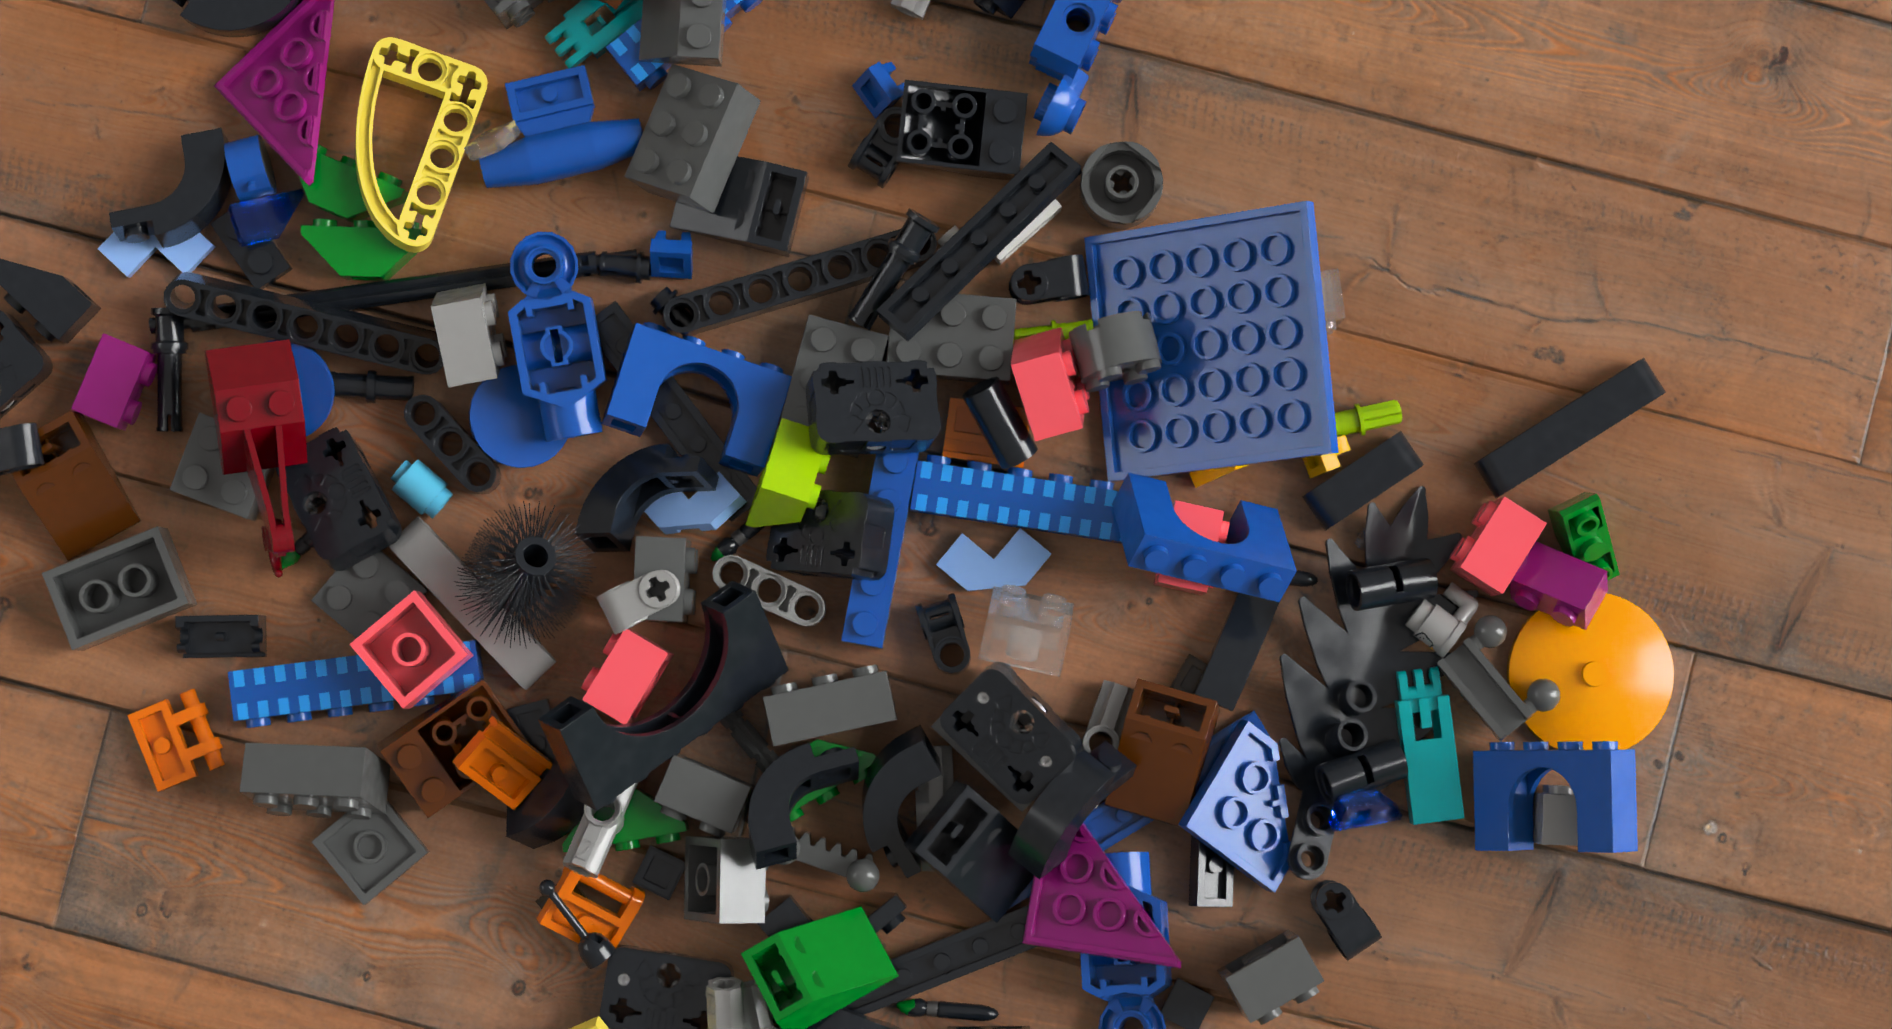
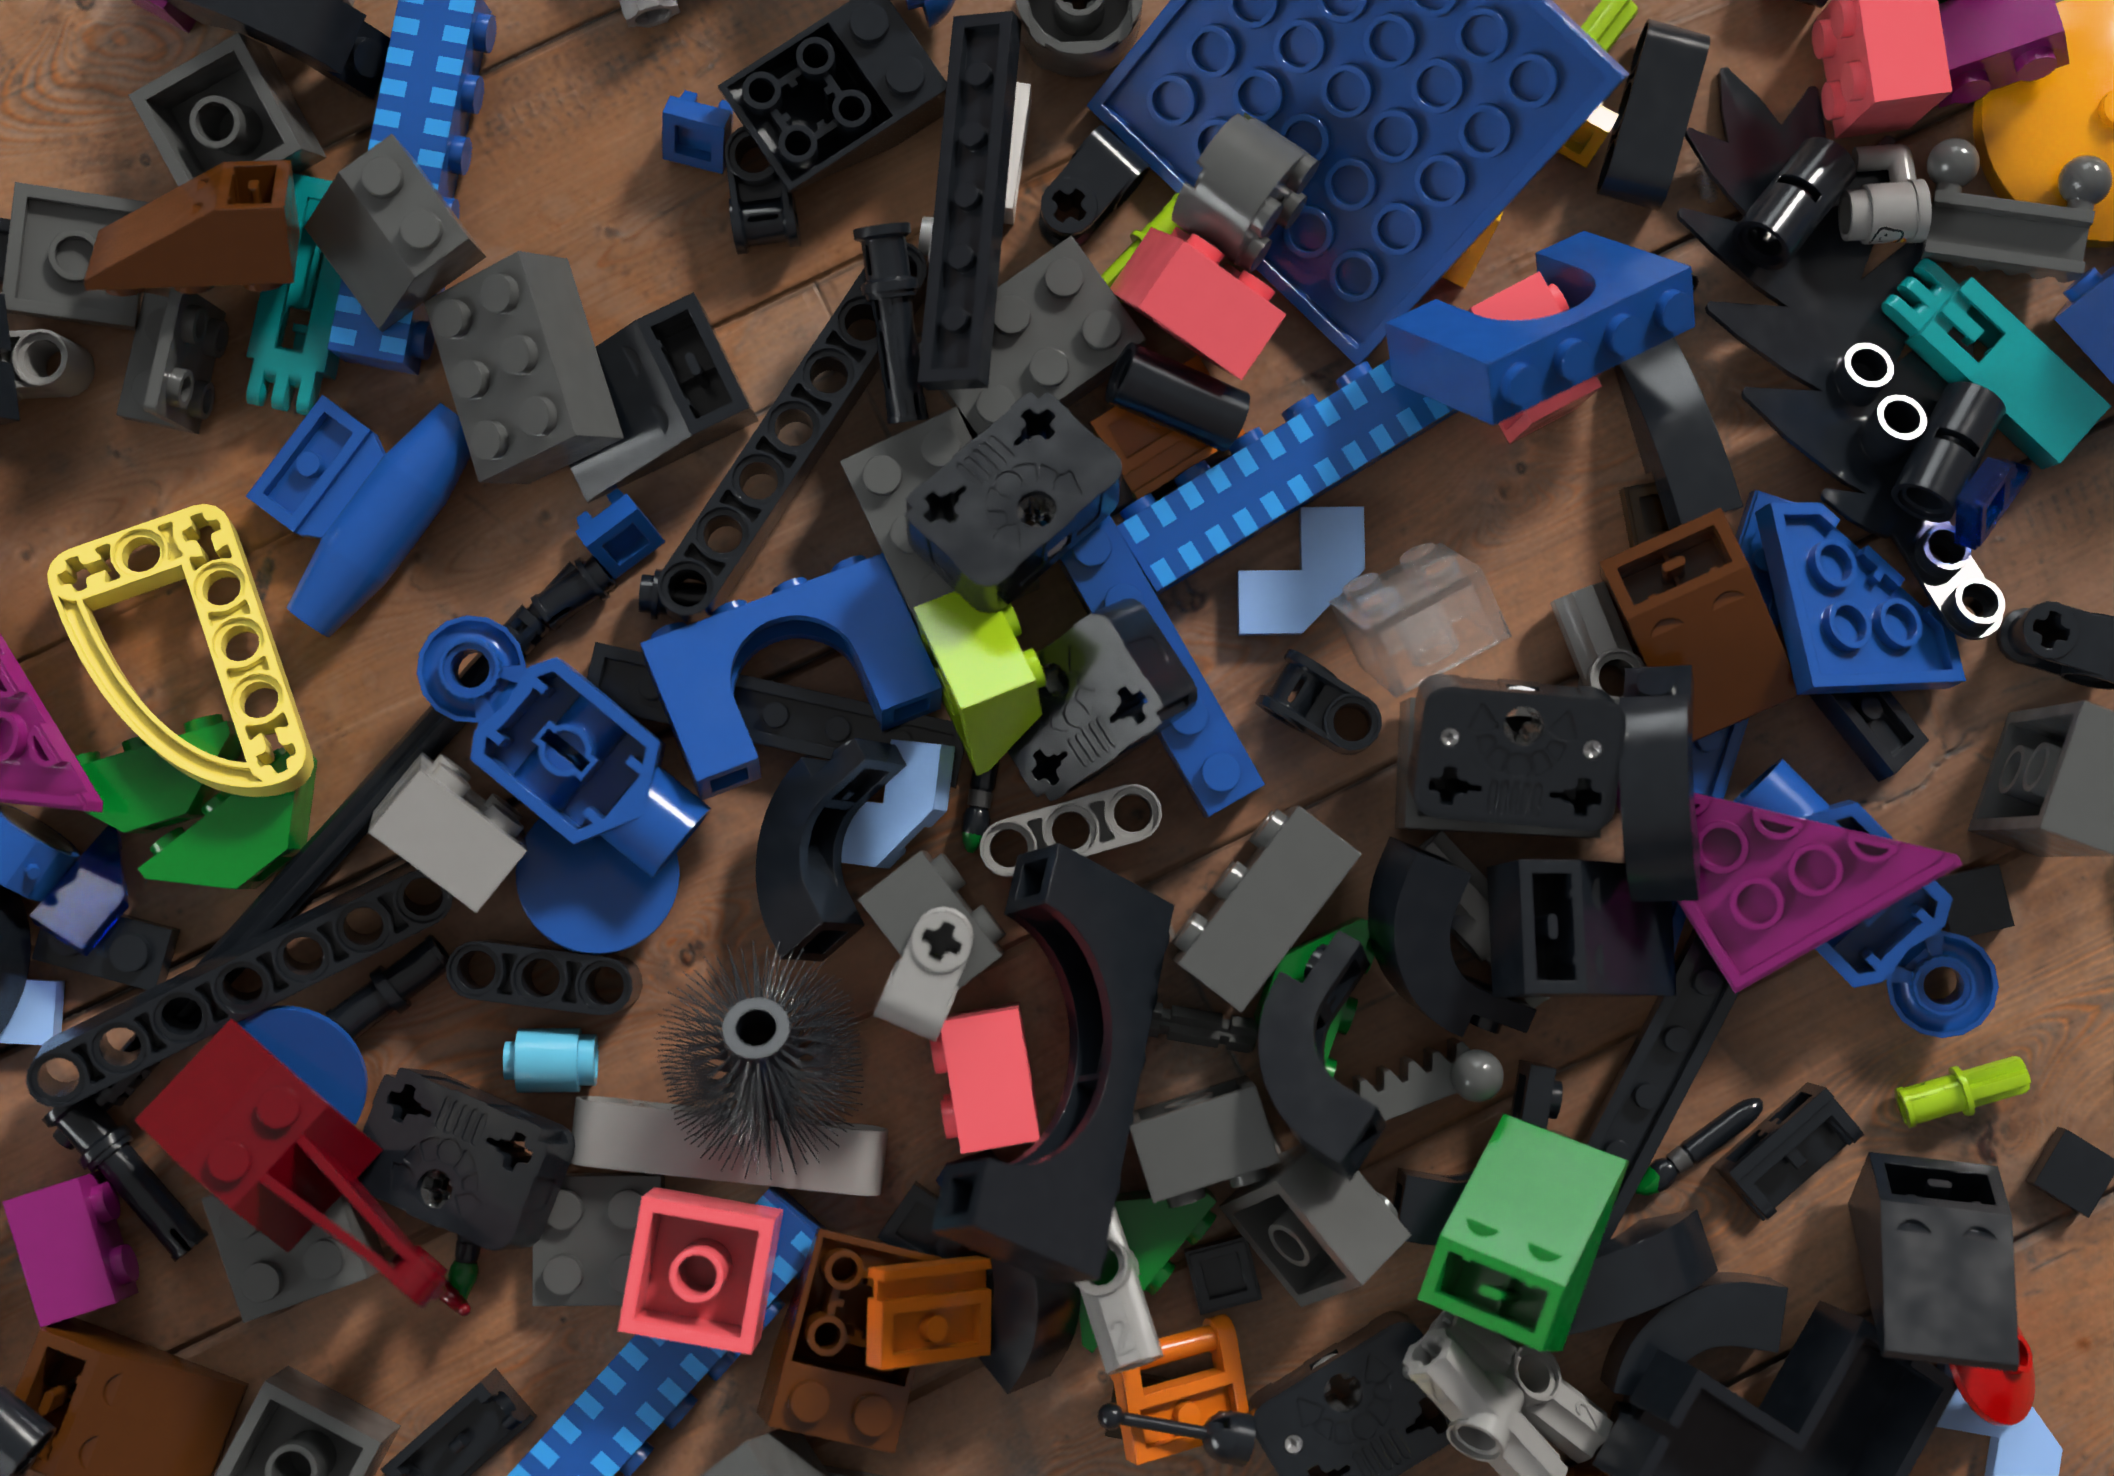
camera: 45 degrees left, 0 degrees up
(492, 141) = (287, 575): clear tile -> none

